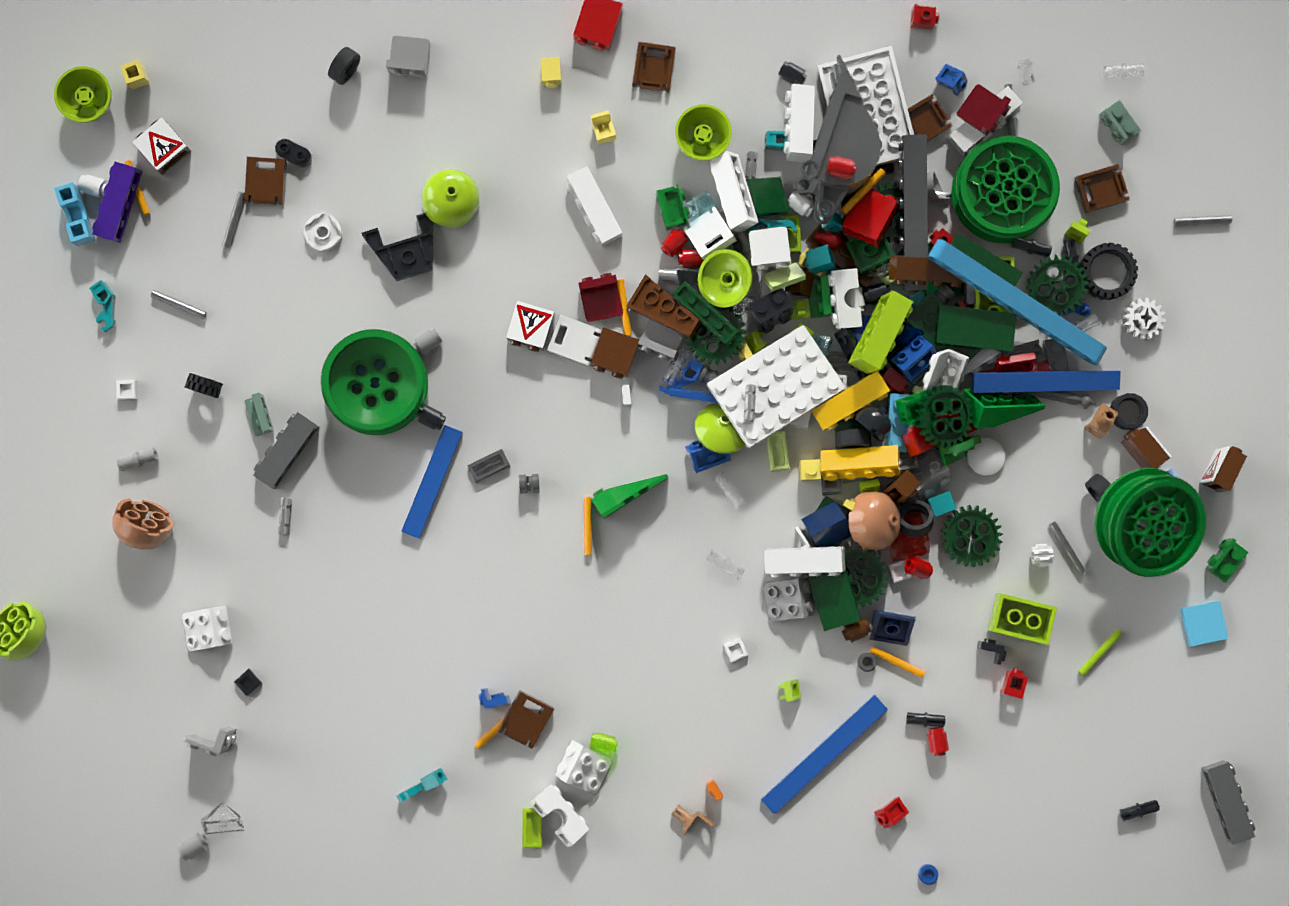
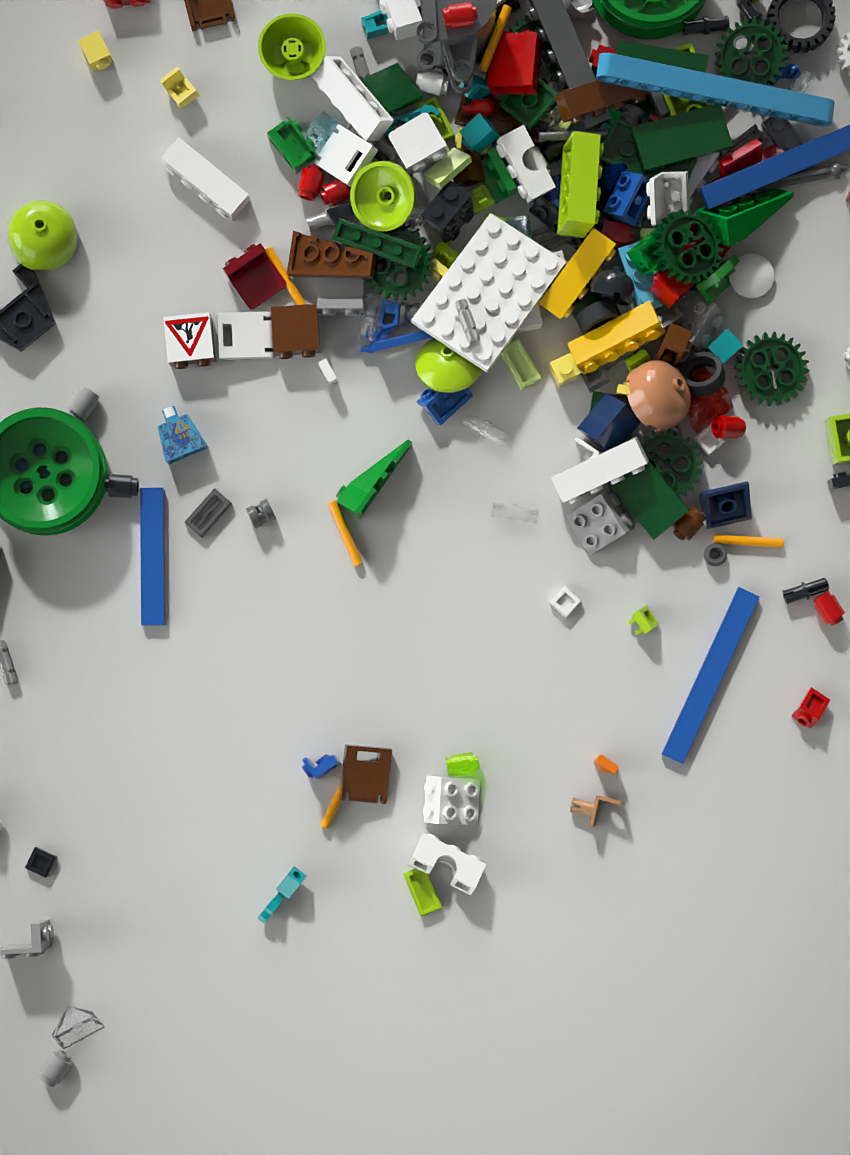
camera: 15 degrees left, 0 degrees up
(491, 397) = (179, 436): none -> torso
(886, 288) = (564, 135): none -> flat silver bar

